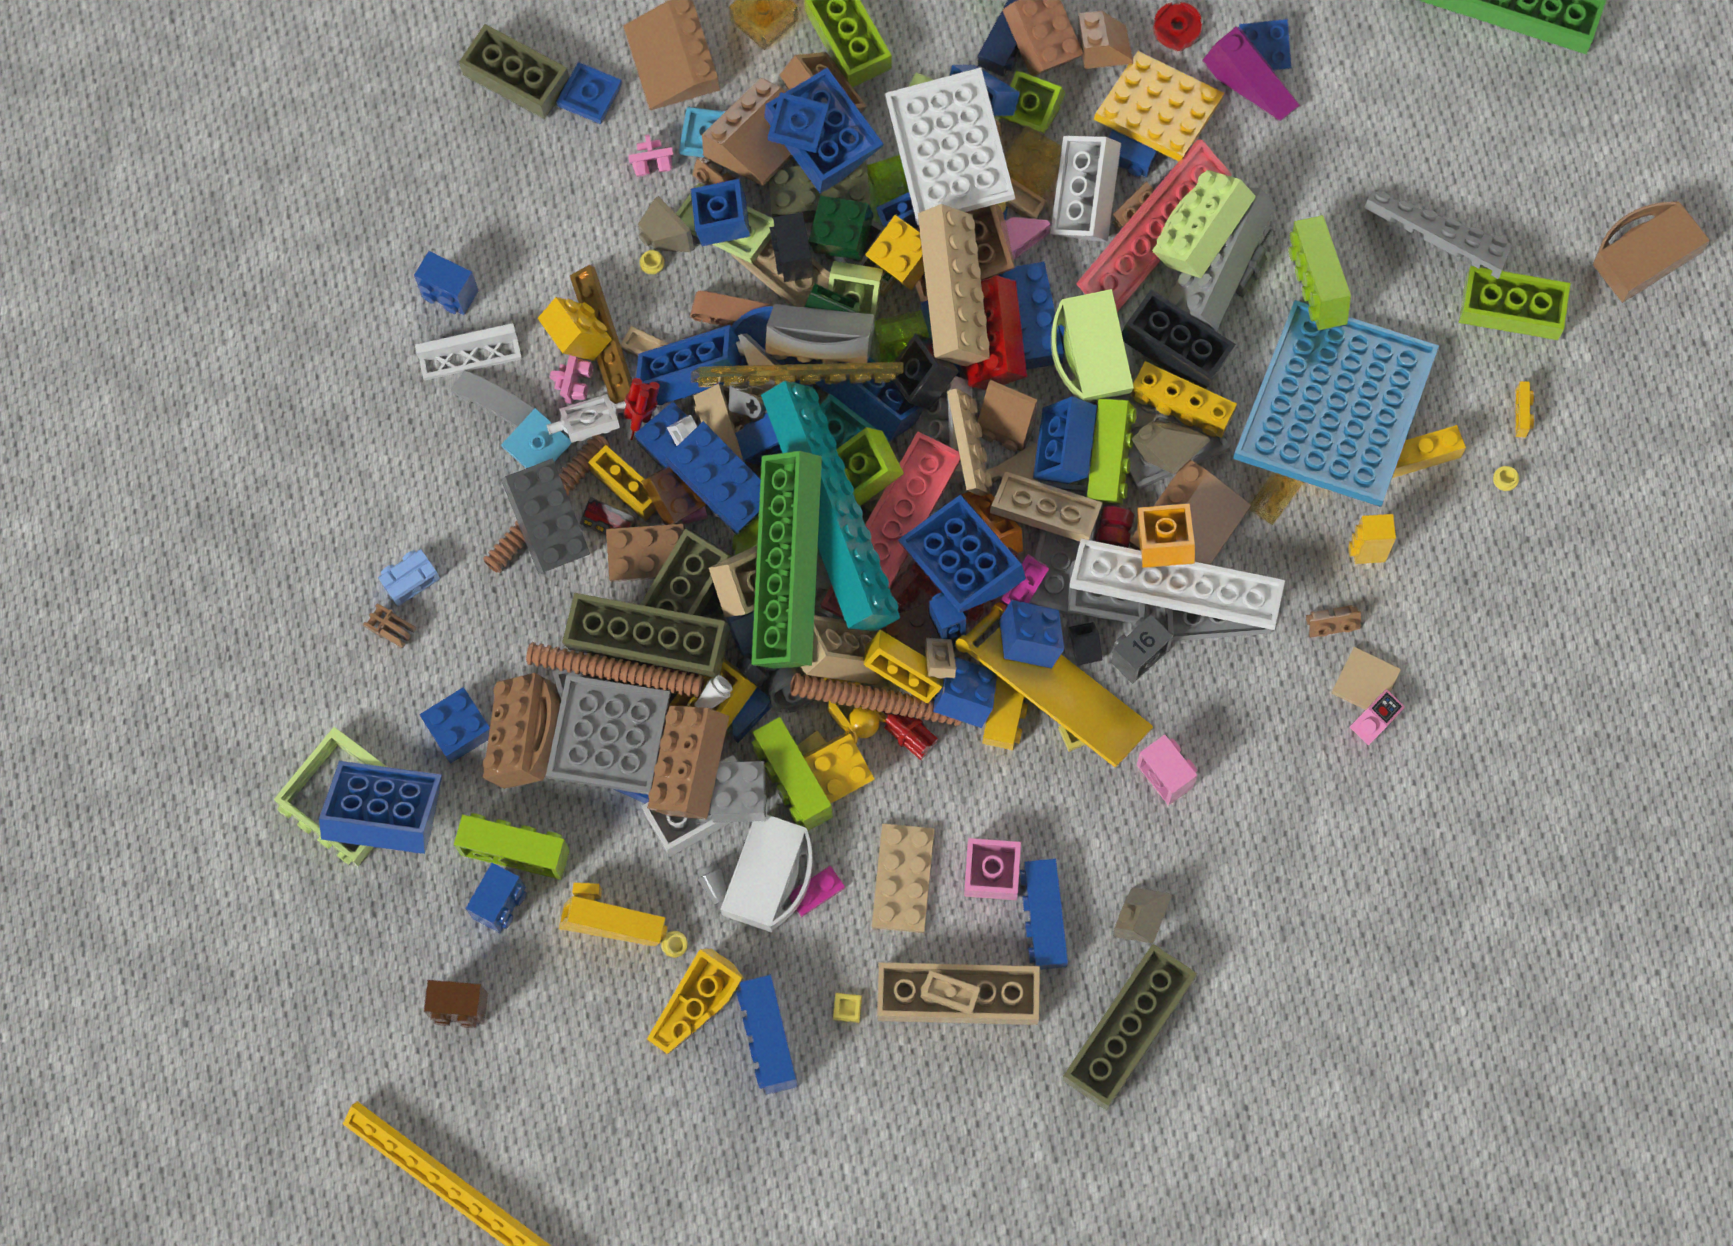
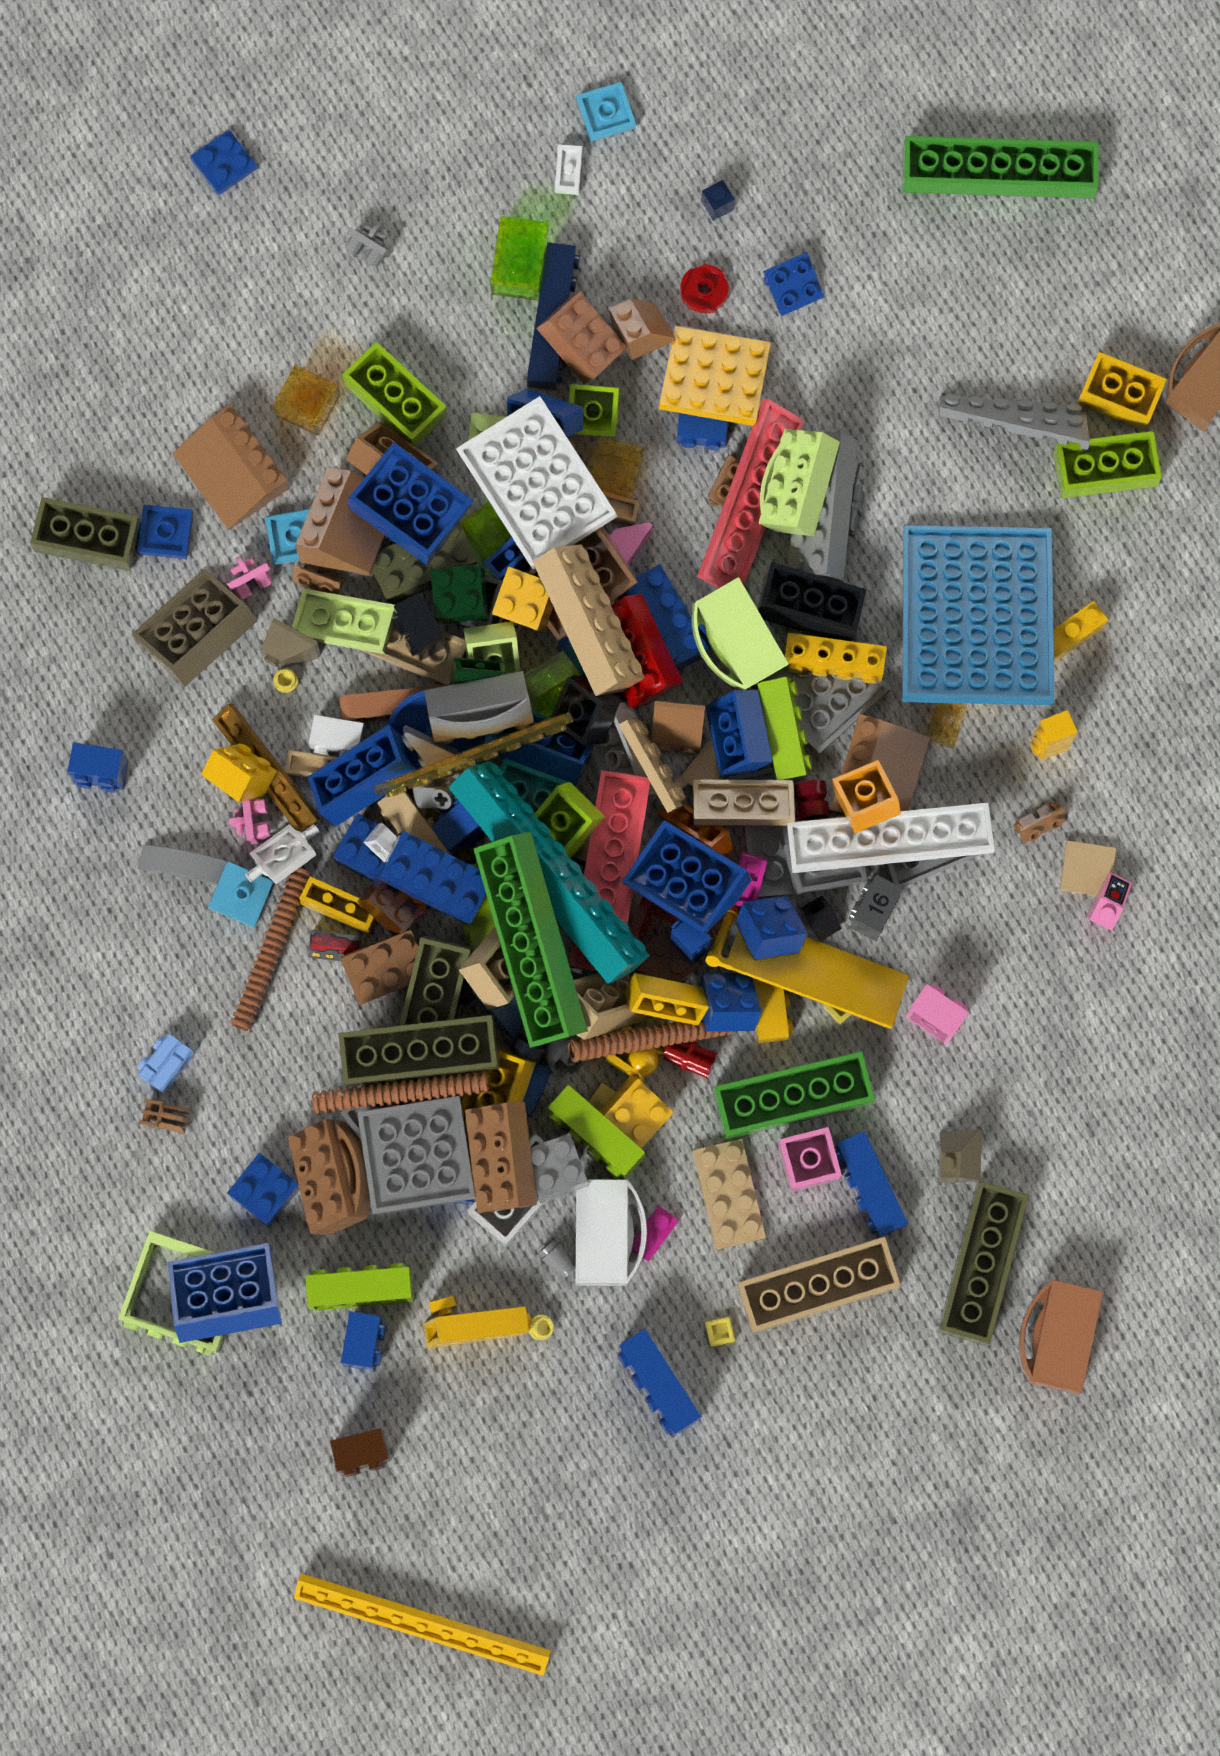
camera: 25 degrees left, 5 degrees up
(466, 343) = (138, 817): white fence -> none
(545, 516) = (277, 964): dark grey brick -> none
(585, 188) = (195, 627): none -> dark tan slope
(640, 403) = (329, 826): red piece -> none
(677, 323) = (334, 735): none -> white brick
(699, 996) = (583, 1367): yellow wedge -> none
(715, 692) = (502, 1084): white cone -> none
(720, 212) = (339, 615): blue brick -> none
(798, 122) = (387, 506): blue plate -> none
(940, 658) = (697, 980): tan plate -> none
(950, 992) = (814, 1289): tan plate -> none
(998, 802) = (793, 1095): none -> bright green brick
(1085, 188) = (674, 479): white slope -> none
(1168, 444) = (837, 705): dark tan slope -> none
(1182, 1123) = (1061, 1336): none -> nougat piece
(1244, 70) = (786, 316): magenta wedge -> none
(1319, 272) = (920, 494): lime brick -> none
(1505, 478) = (1152, 635): light yellow plate -> none
(1523, 400) = (1145, 554): yellow plate -> none
(1552, 238) = (1121, 391): none -> yellow brick

